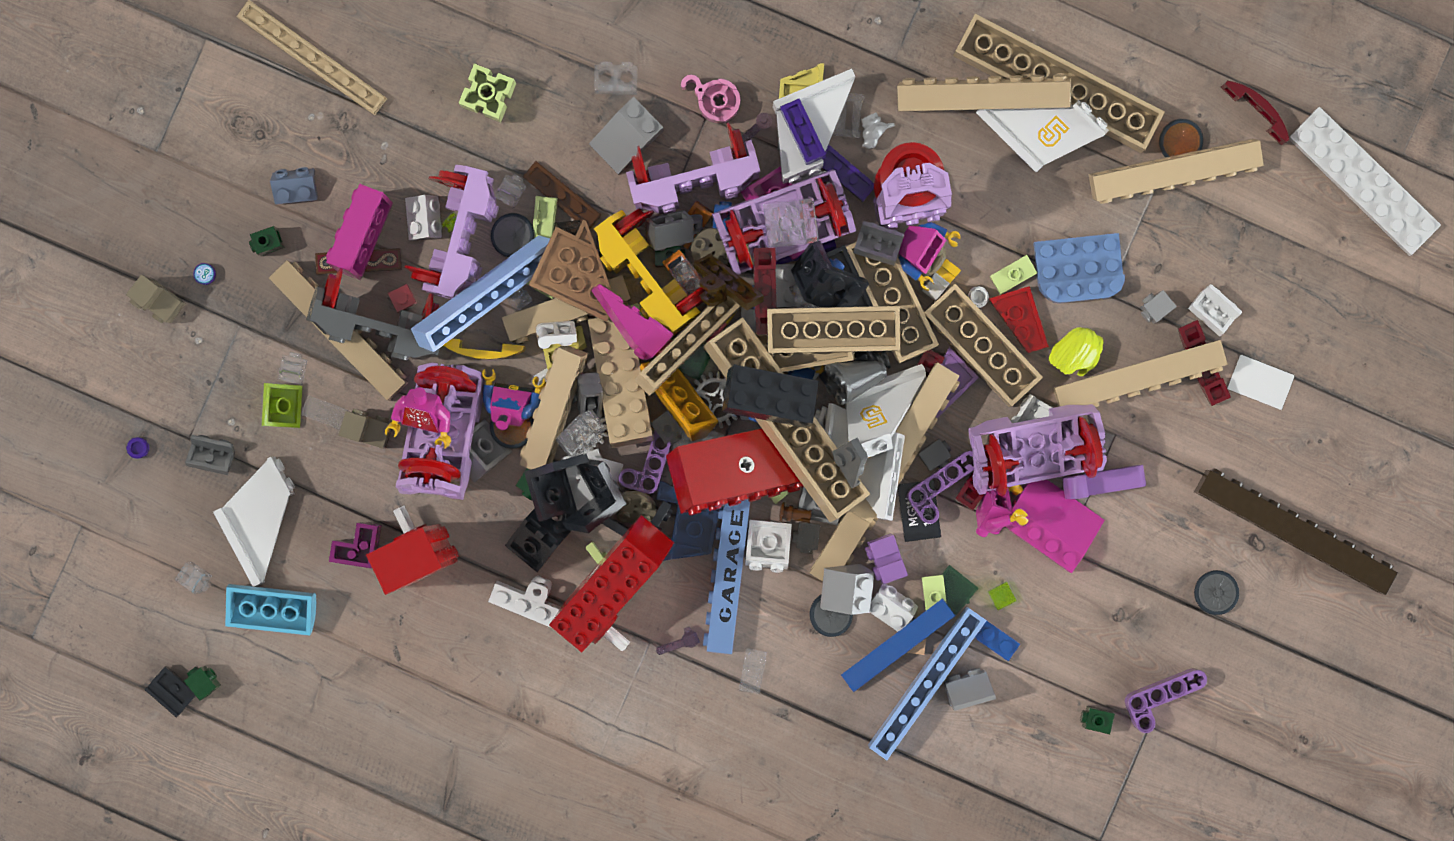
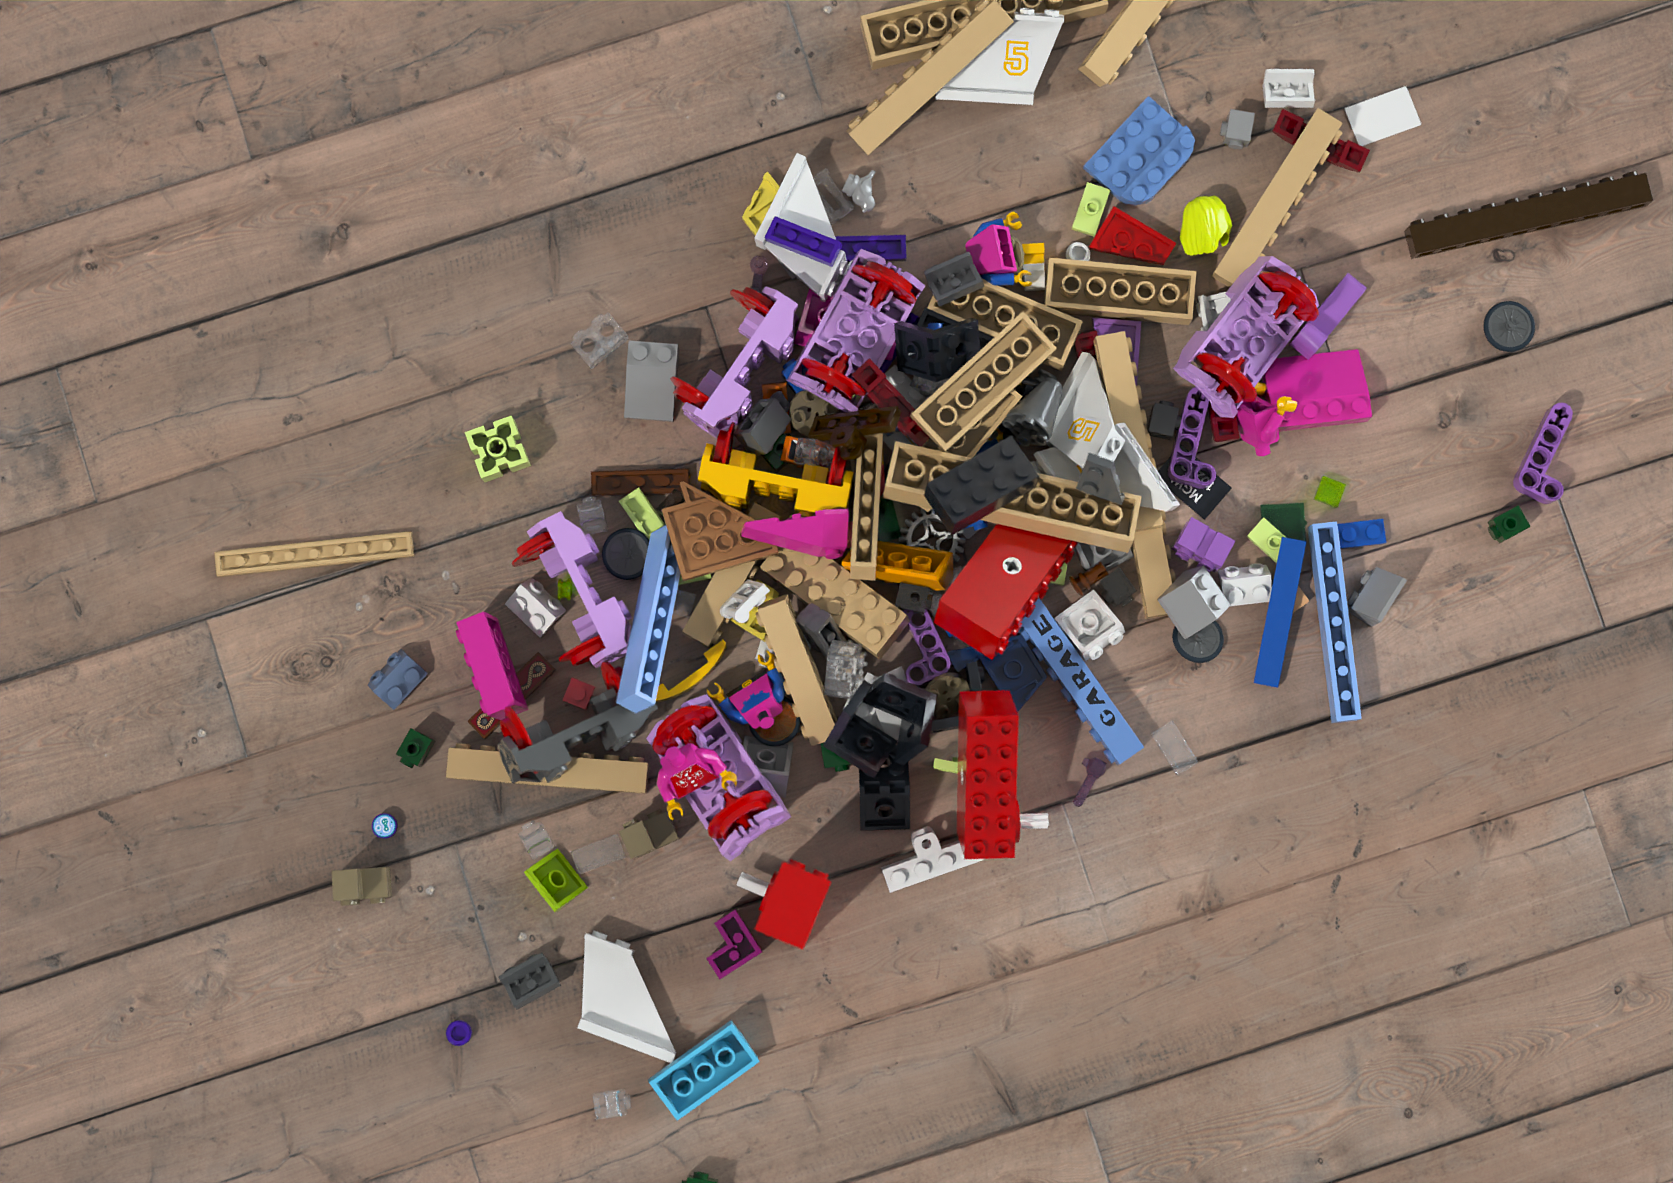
camera: 45 degrees left, 5 degrees down
(708, 92) = (689, 284): bright pink piece -> none
(790, 222) = (864, 324): clear brick -> none
(911, 186) = (940, 204): lavender piece -> none

